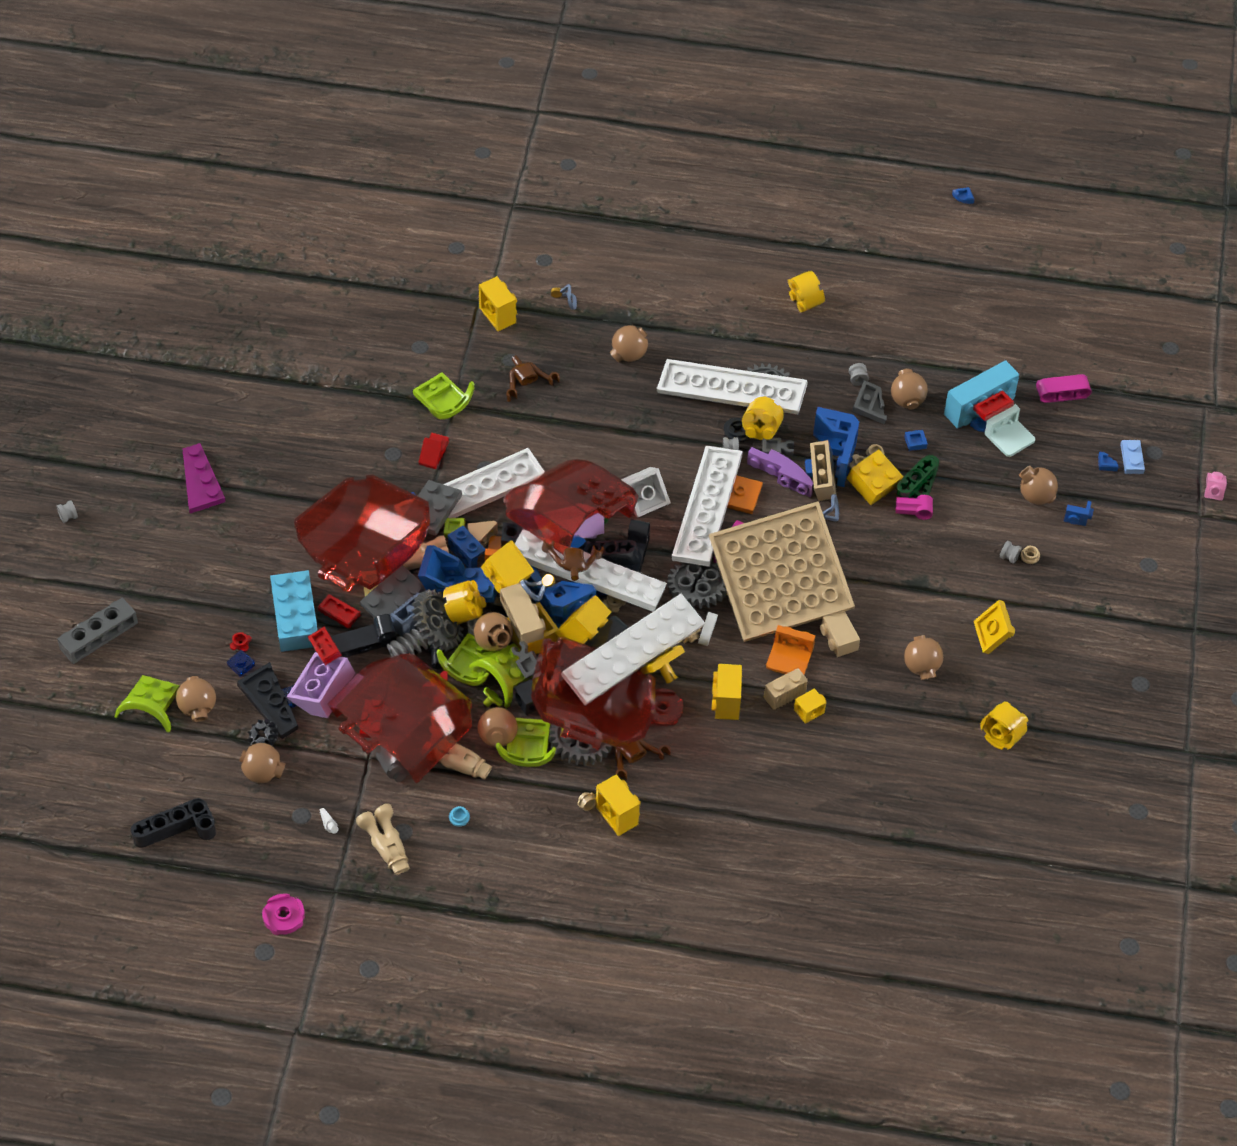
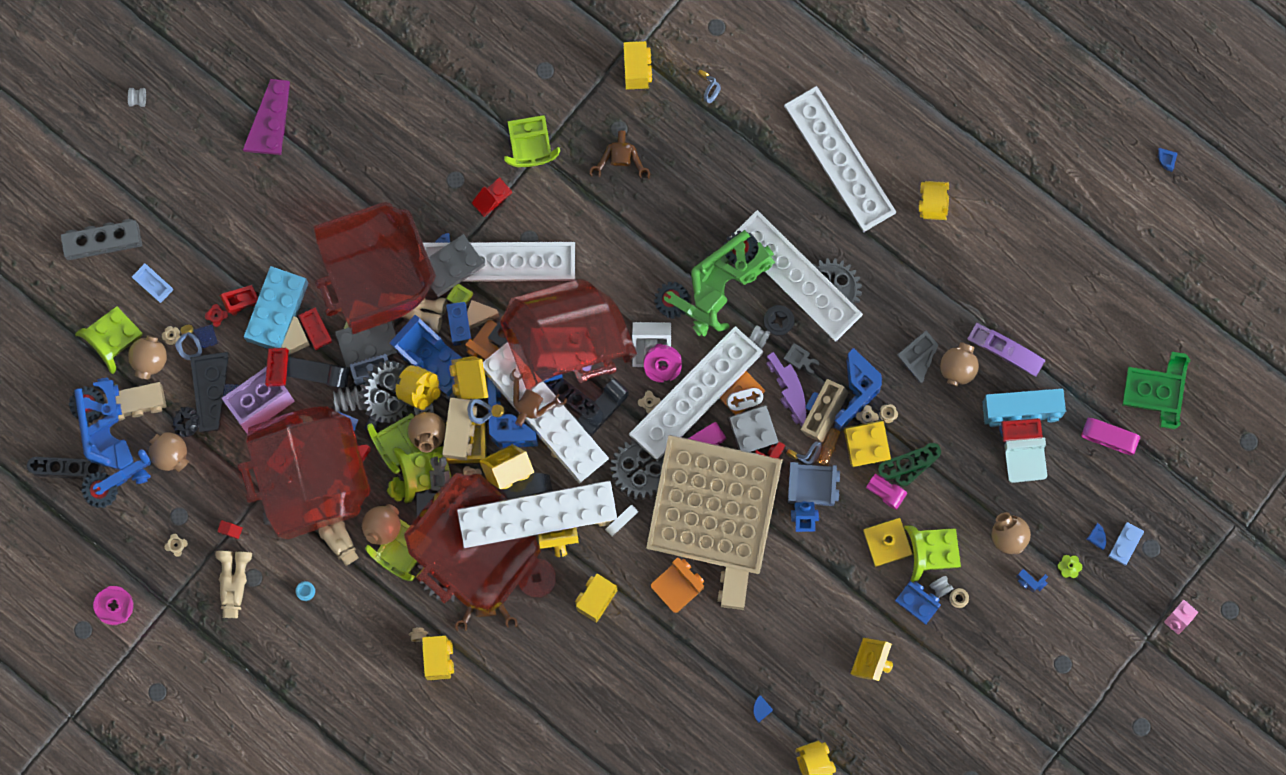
camera: 35 degrees right, 25 degrees up
(165, 643) = (152, 283): none -> light blue plate
(199, 780) = (101, 446): none -> blue piece
(204, 739) = (140, 400): none -> tan brick
(212, 675) = (166, 335): none -> tan plate
(219, 668) = (187, 330): none -> sand blue piece
(253, 618) = (239, 299): none -> red slope
(313, 832) = (173, 540): none -> tan plate
(327, 620) = (295, 337): none -> tan slope
(329, 823) = (196, 537): white bar -> none
(358, 800) = (229, 529): none -> red piece
(629, 344) = (731, 175): medium nougat brick -> none
(653, 500) = (664, 373): none -> dark pink plate
(670, 534) = (649, 397): none -> tan plate
(674, 436) = (710, 279): none -> bright green piece
(709, 300) = (840, 159): none -> white plate
(748, 489) = (746, 403): none -> white beam
(762, 418) = (800, 328): yellow brick -> none
(771, 502) = (753, 429): none -> light grey brick
(785, 689) = (651, 619): tan brick -> none
(810, 705) = (663, 646): yellow brick -> none
(844, 498) = (828, 447): none -> clear orange axle
(853, 530) = (813, 484): none -> sand blue panel
(858, 374) = (927, 318): light grey wheel -> none
(861, 552) = (804, 516): none -> blue brick
(915, 440) = (934, 419): blue plate -> none
(923, 657) = (789, 655): medium nougat brick -> none
(927, 714) = (761, 709): none -> blue tile
(939, 363) = (1006, 349): none -> medium lavender slope
(942, 544) = (887, 542): none -> yellow tile
(986, 528) = (933, 550): none -> lime piece
(999, 572) = (918, 602): none -> blue bracket
(1075, 342) = (1159, 390): none -> green piece
(1100, 494) = (1066, 570): none -> lime plant

